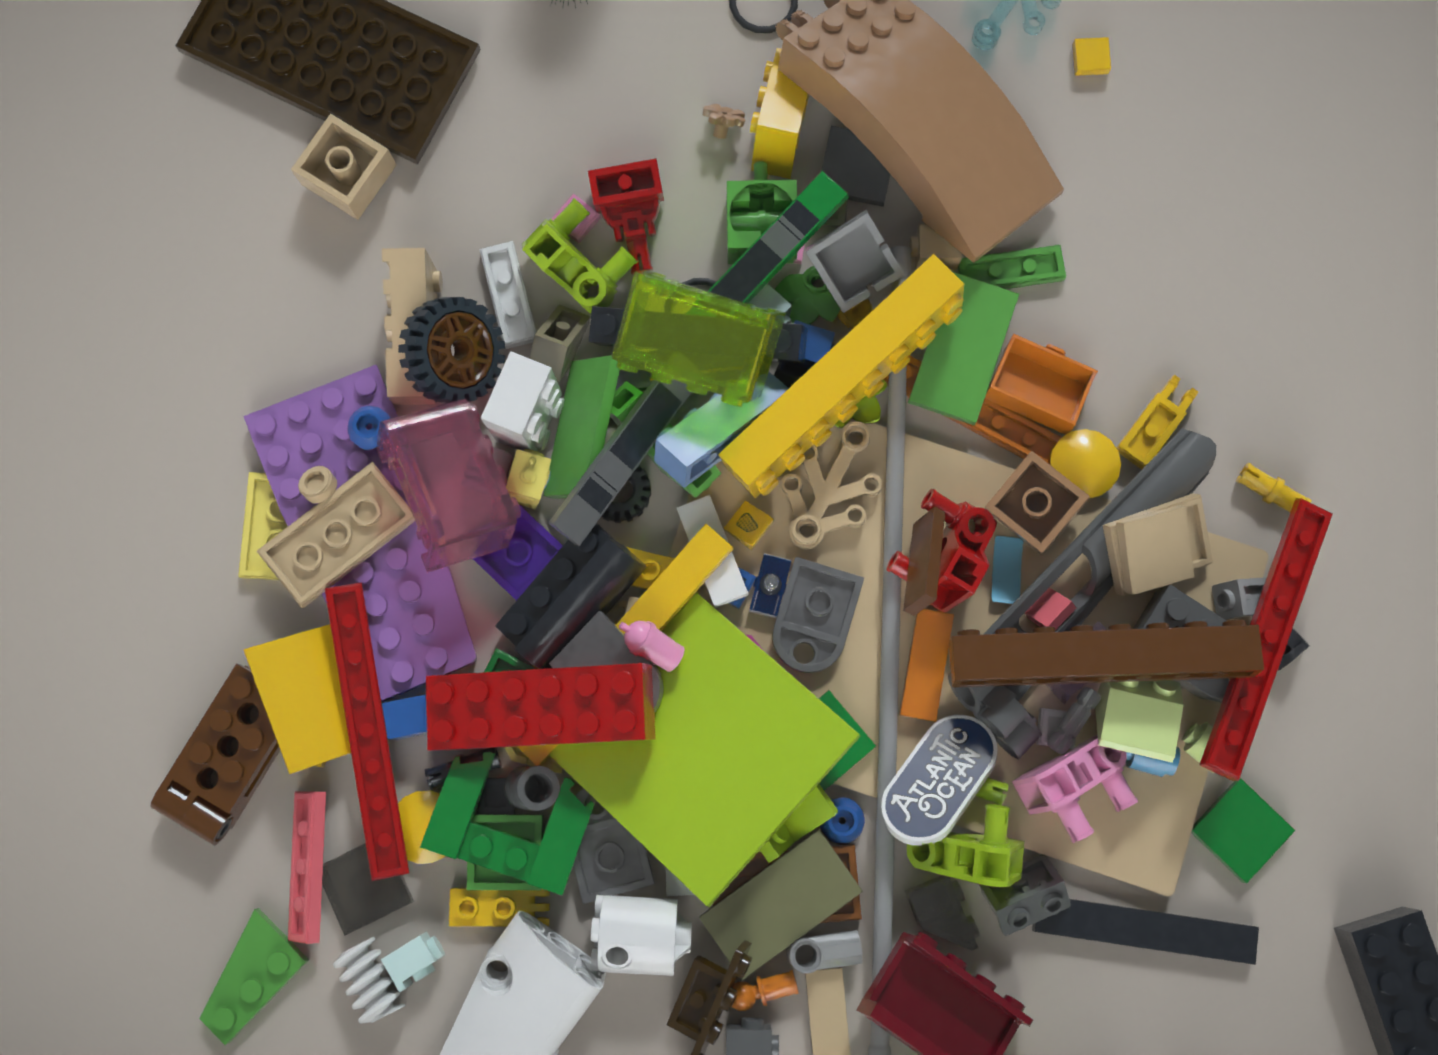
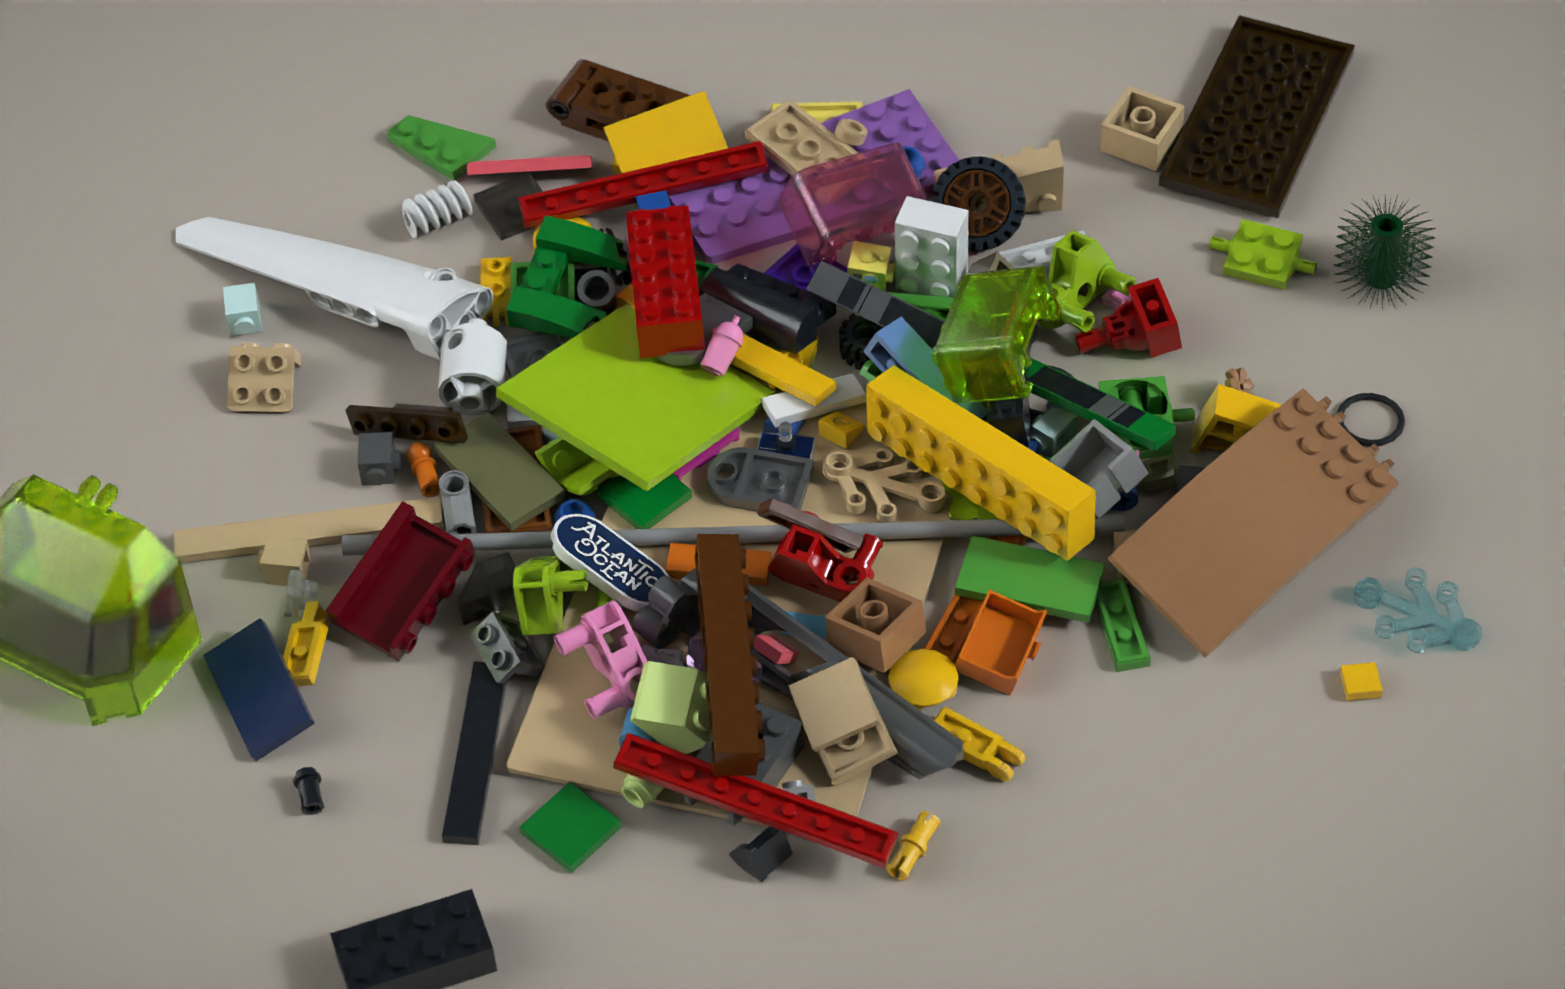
camera: 90 degrees right, 30 degrees down
(413, 960) = (452, 235): light aqua brick -> none
(532, 71) = (1263, 254): none -> lime plate

